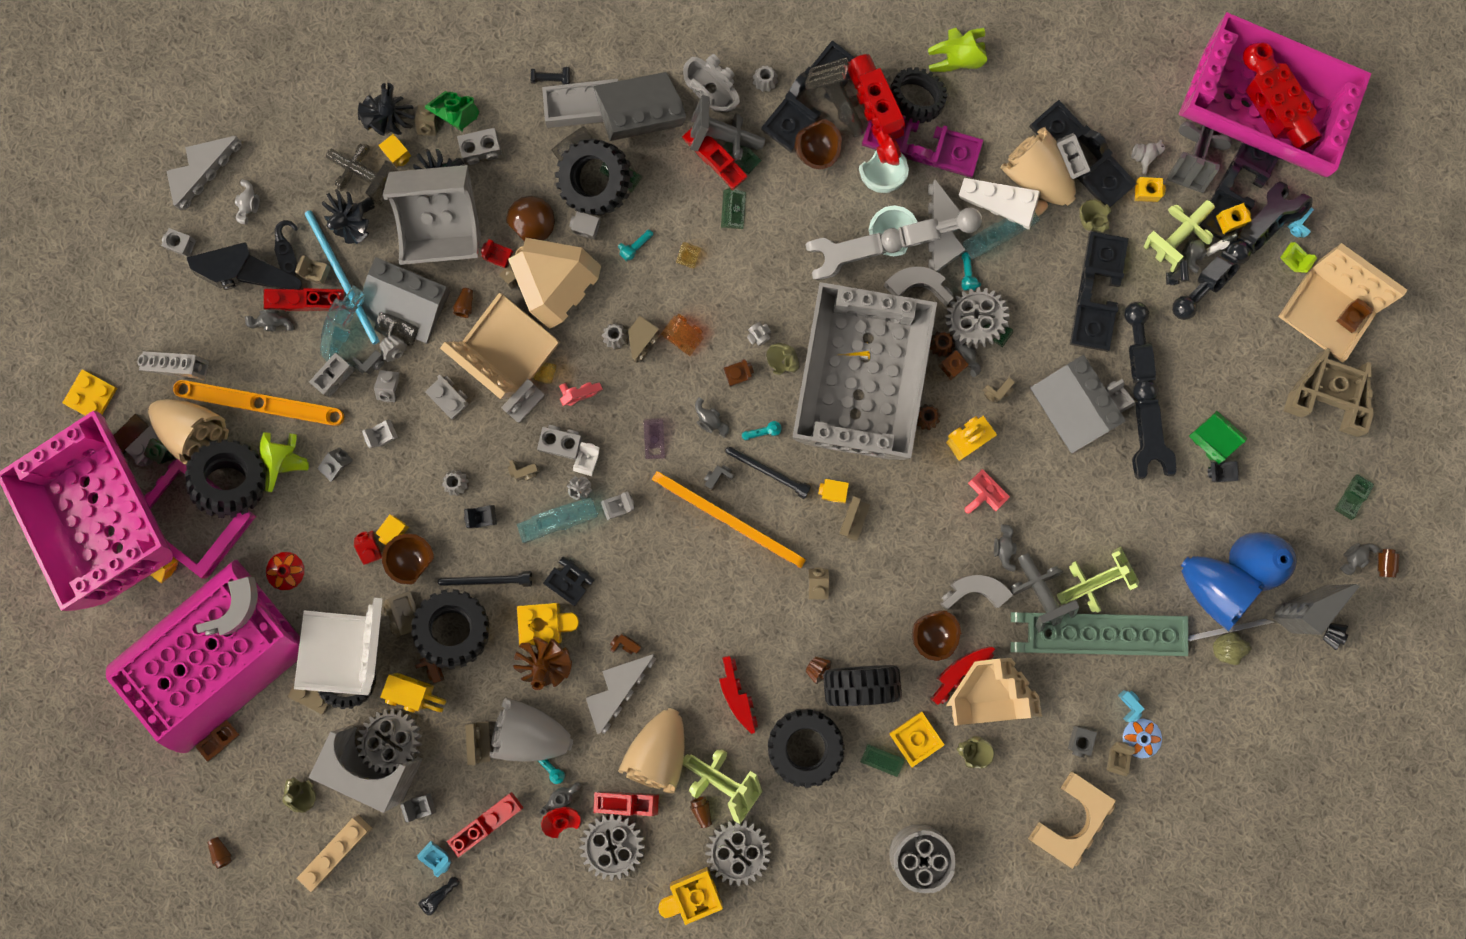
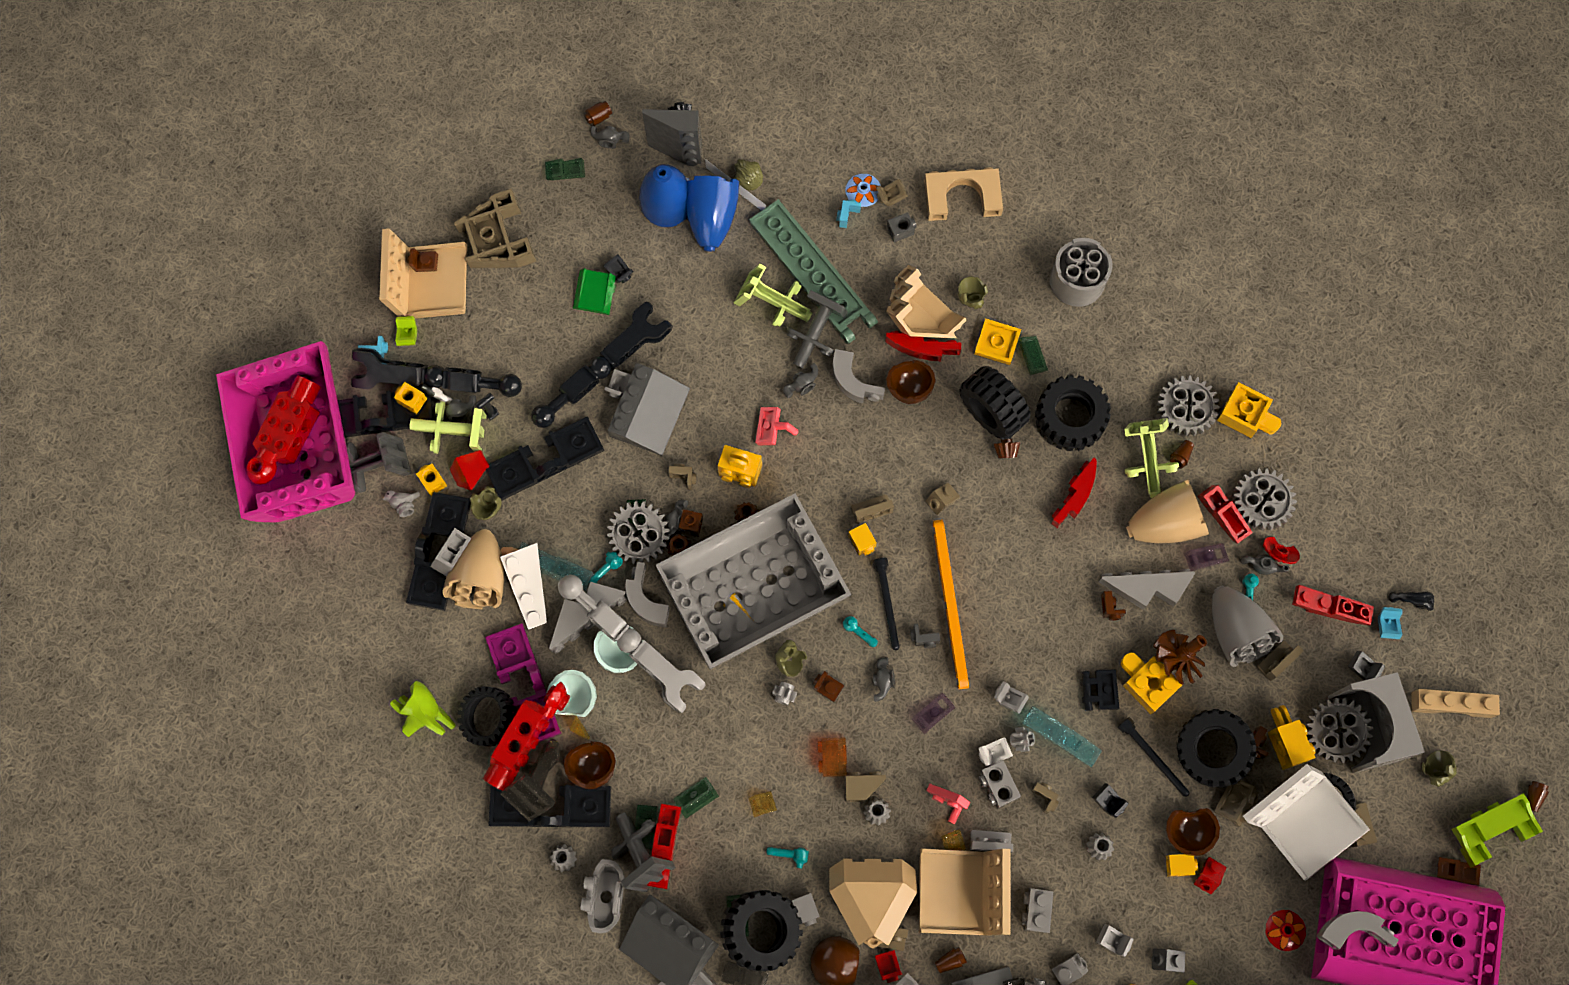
camera: 130 degrees left, 10 degrees down
(226, 798) = (1500, 818): none -> lime bracket
(604, 757) = (1205, 557): none -> slope
(852, 159) = (579, 729): none -> clear yellow slope
(1134, 224) = (468, 469): none -> red slope

